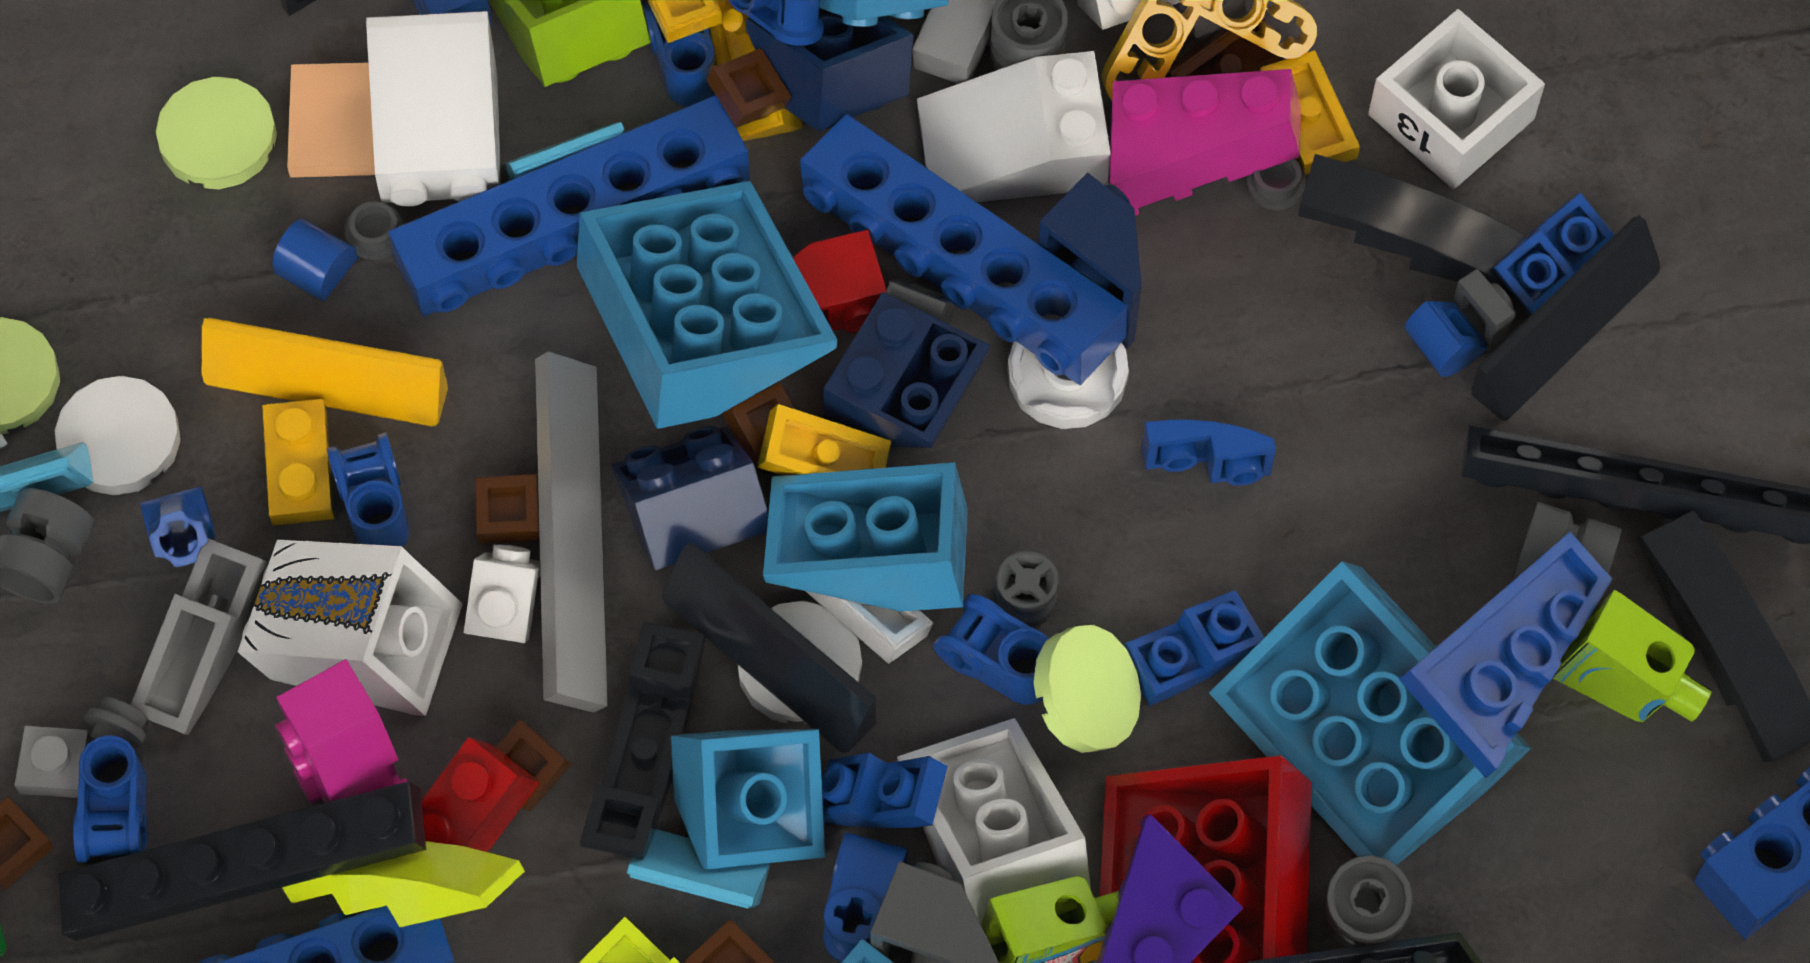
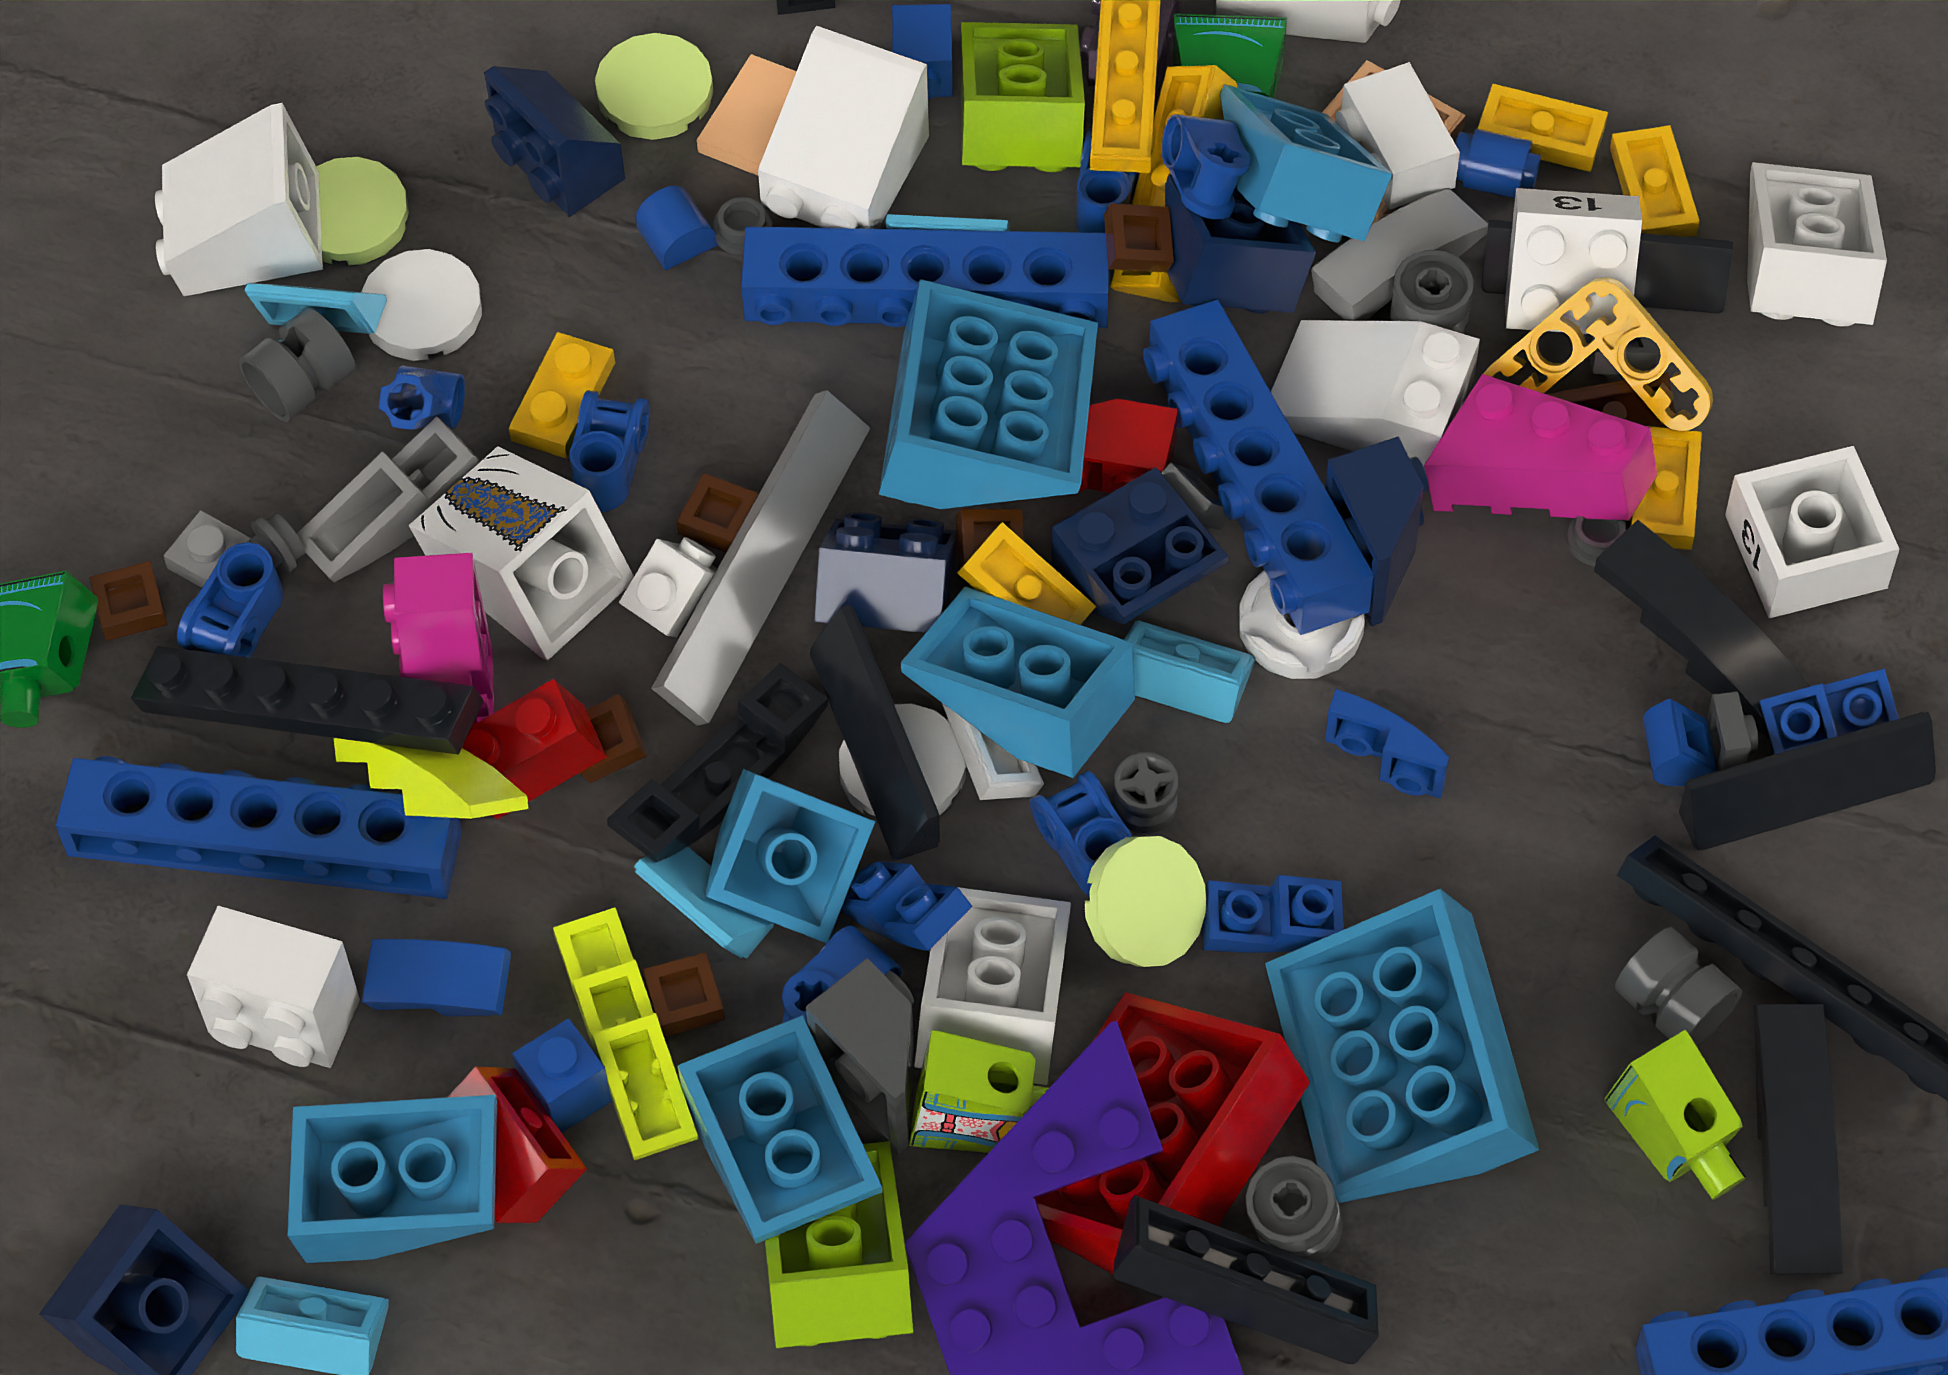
camera: 30 degrees right, 5 degrees down
(156, 225) = (551, 138): none -> dark blue slope
(318, 368) = (636, 330): yellow slope -> none
(1000, 461) = (1188, 671): none -> medium azure slope
(1502, 657) = (1542, 1039): blue wing -> none

